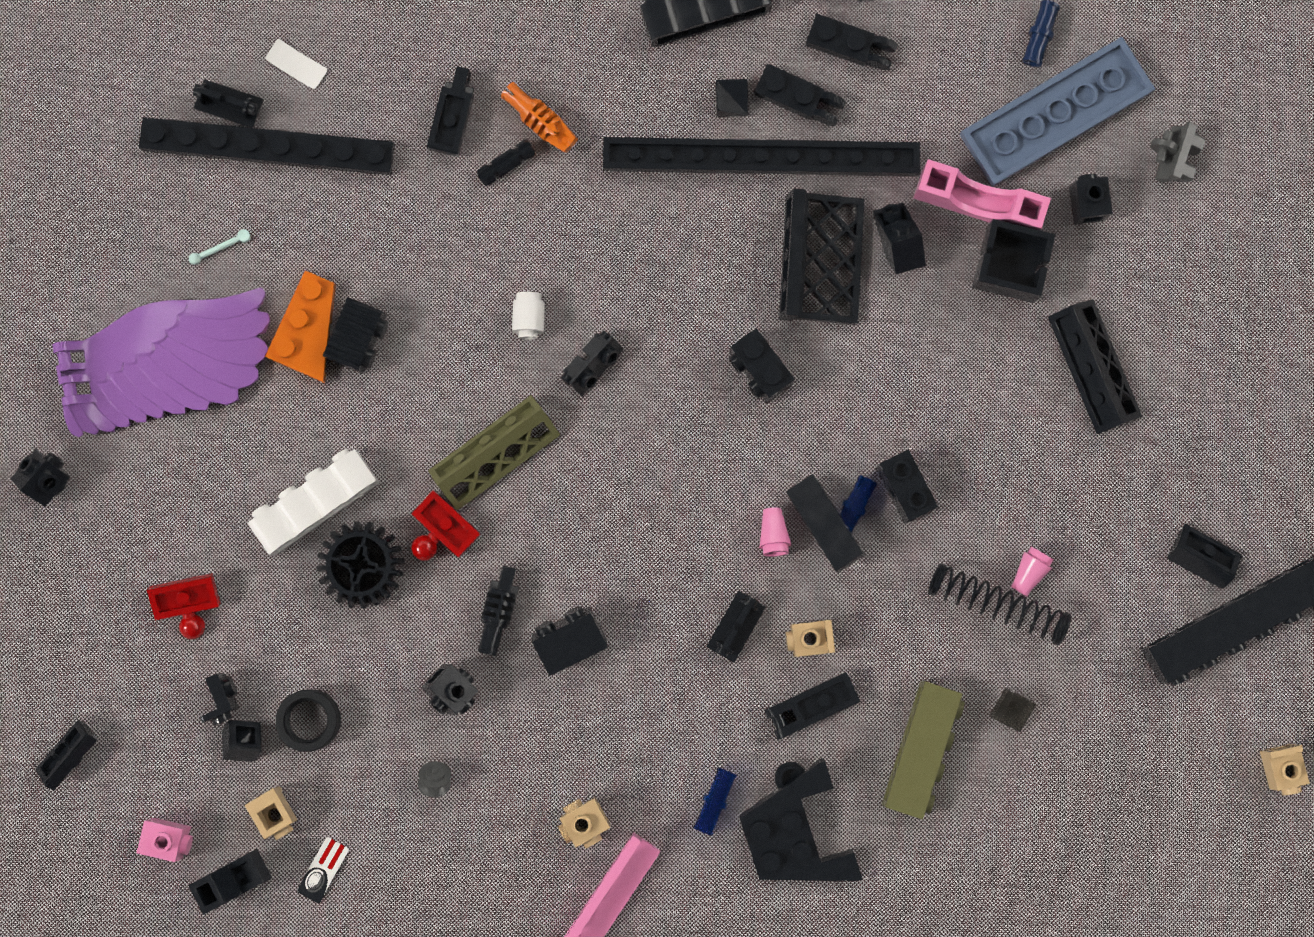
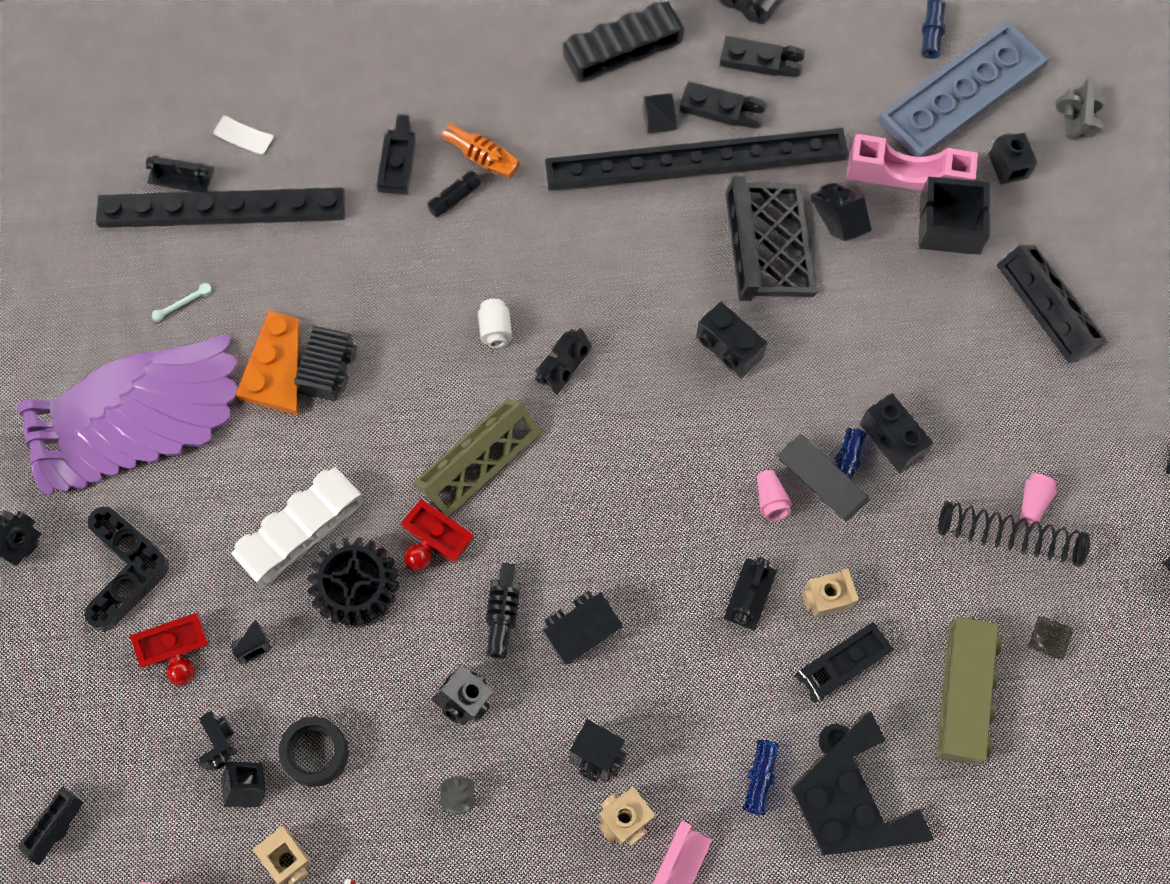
camera: 10 degrees left, 15 degrees down
(155, 522) = (134, 571): none -> black beam
(259, 610) = (252, 644): none -> black slope
(566, 763) = (597, 752): none -> black brick

